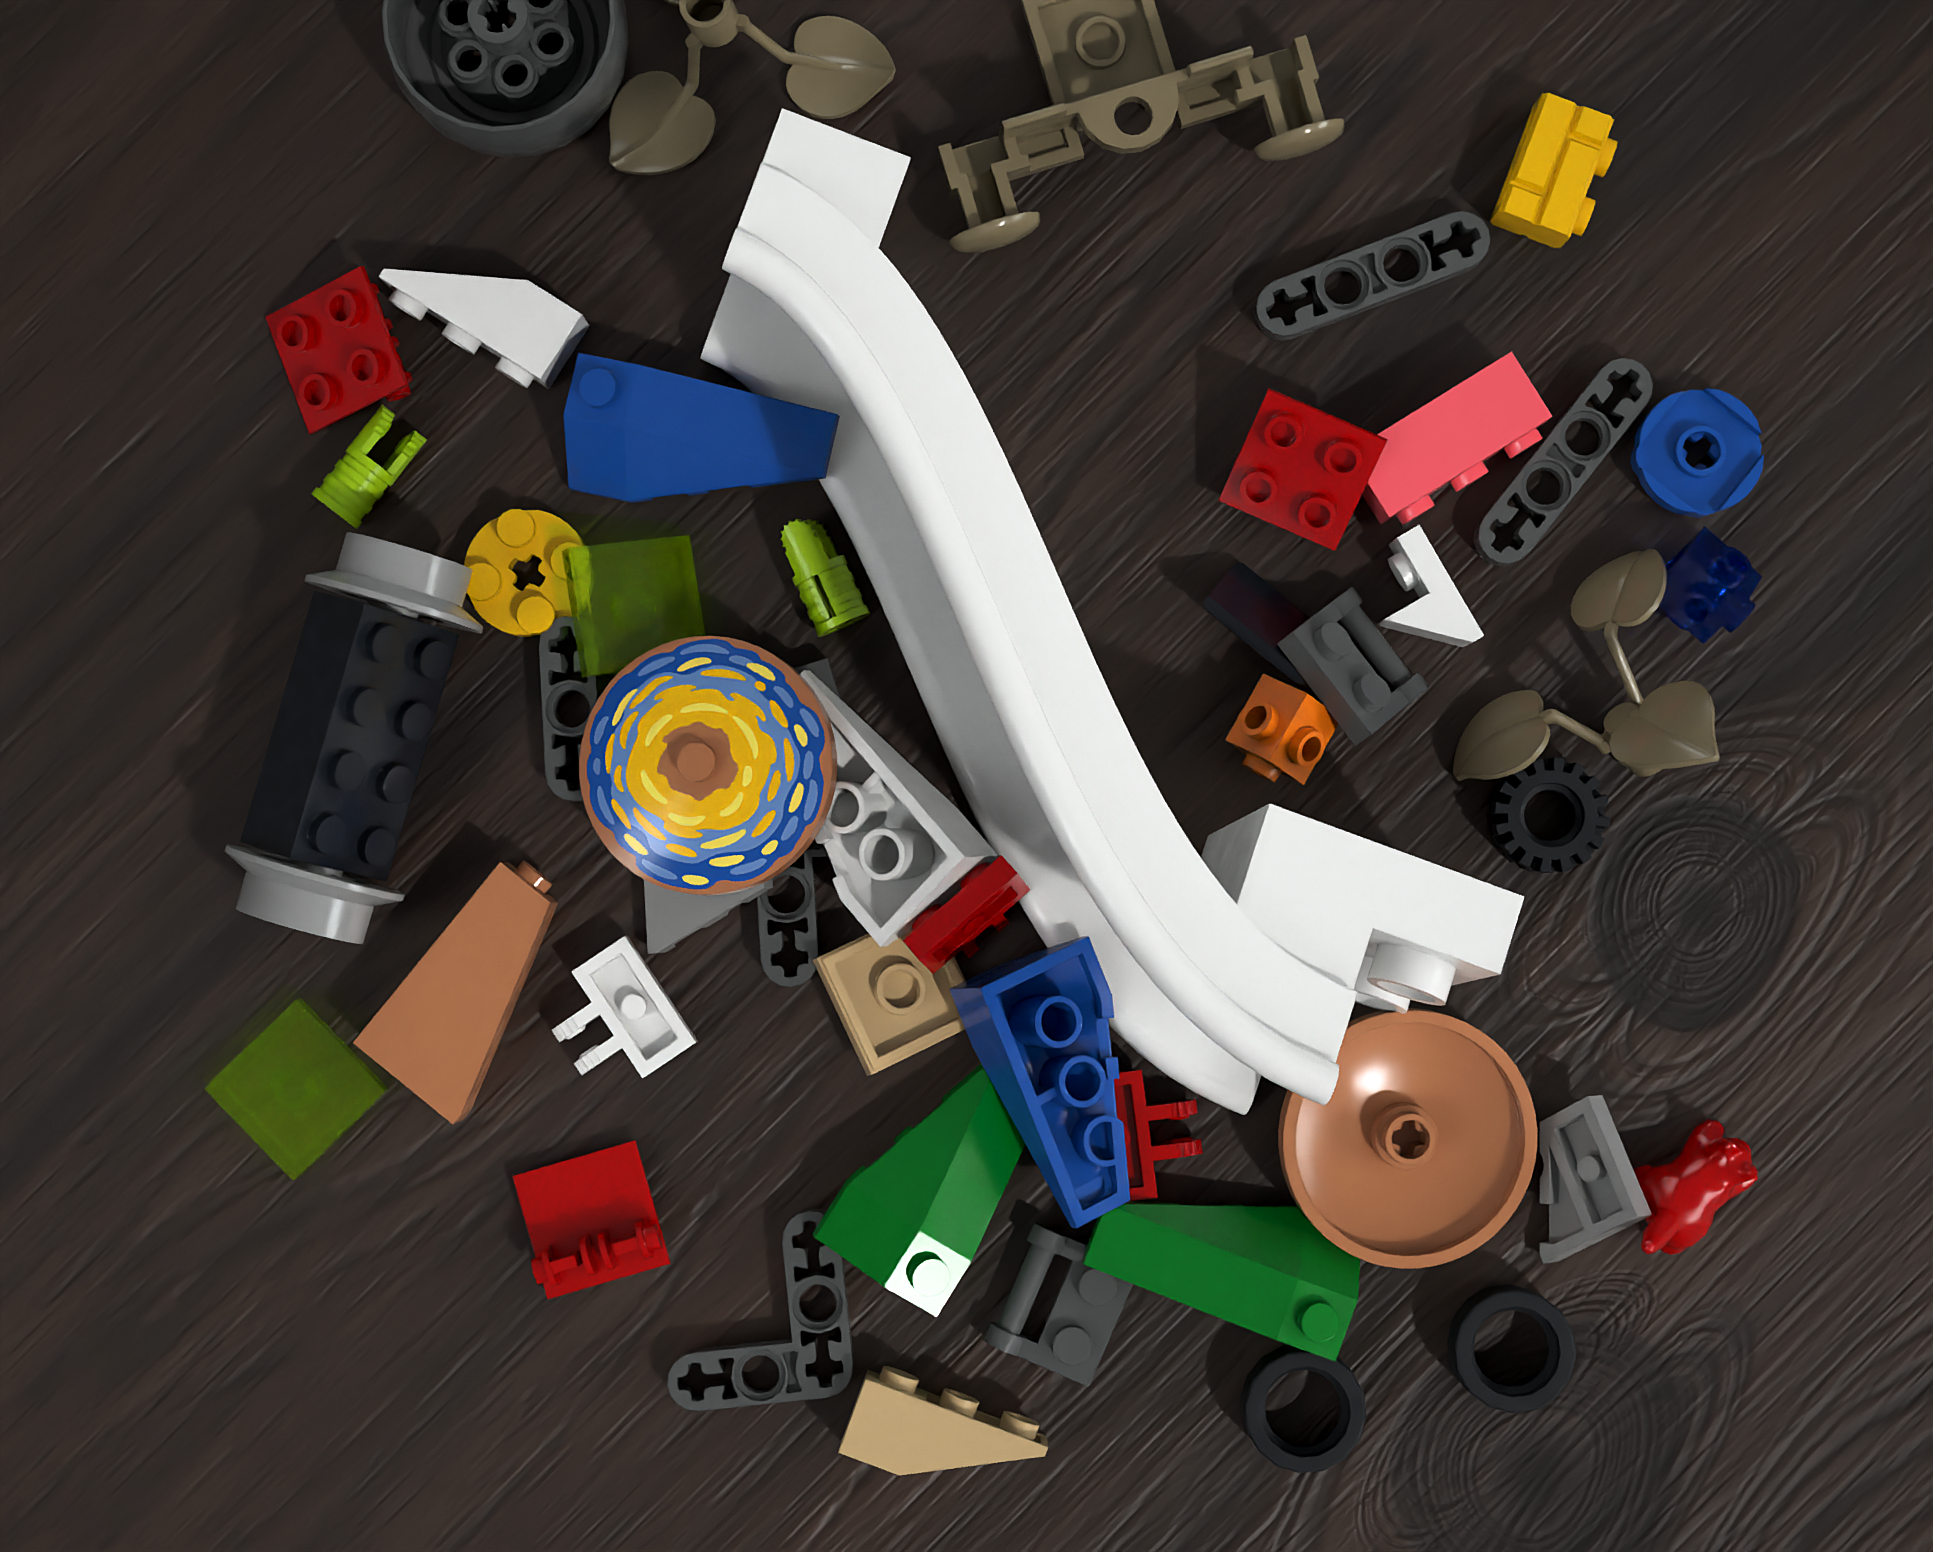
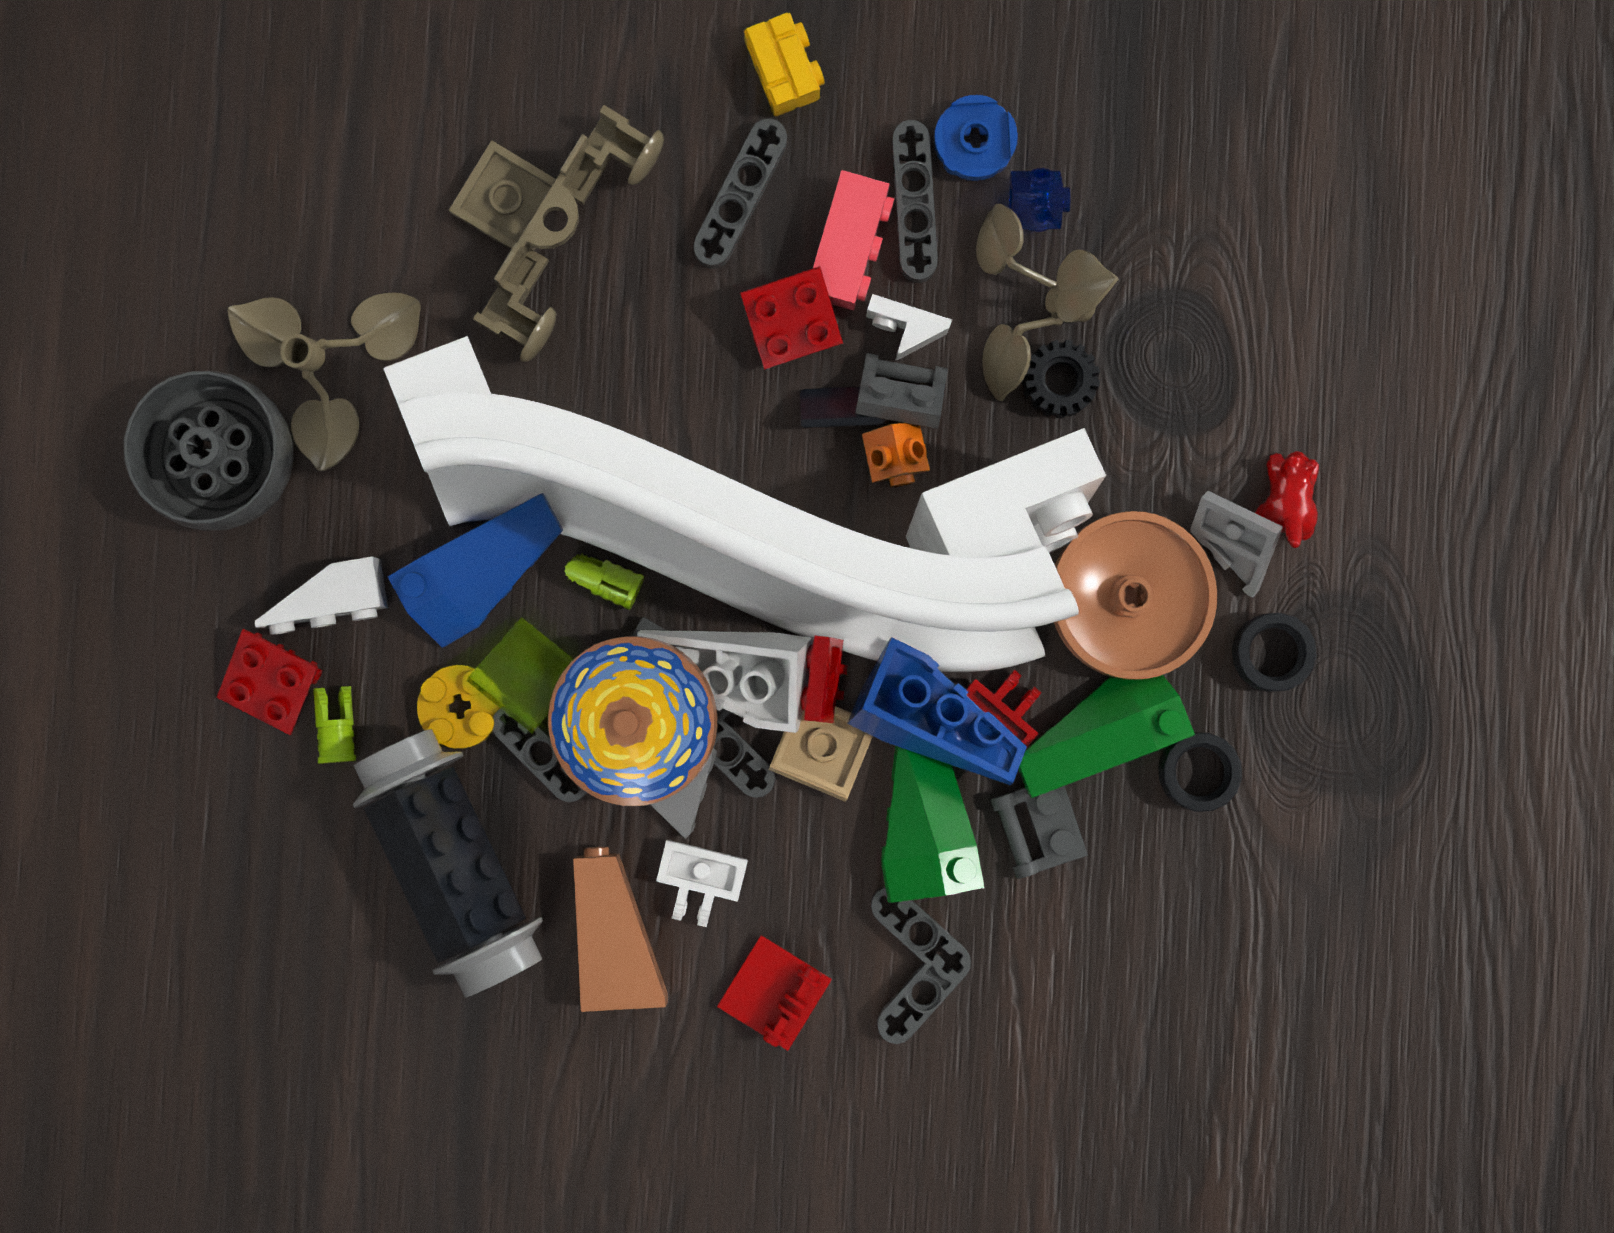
camera: 45 degrees left, 0 degrees up
(296, 1089) = (573, 1059): clear neon green plate -> none
(923, 1432) = (1024, 952): tan slope -> none

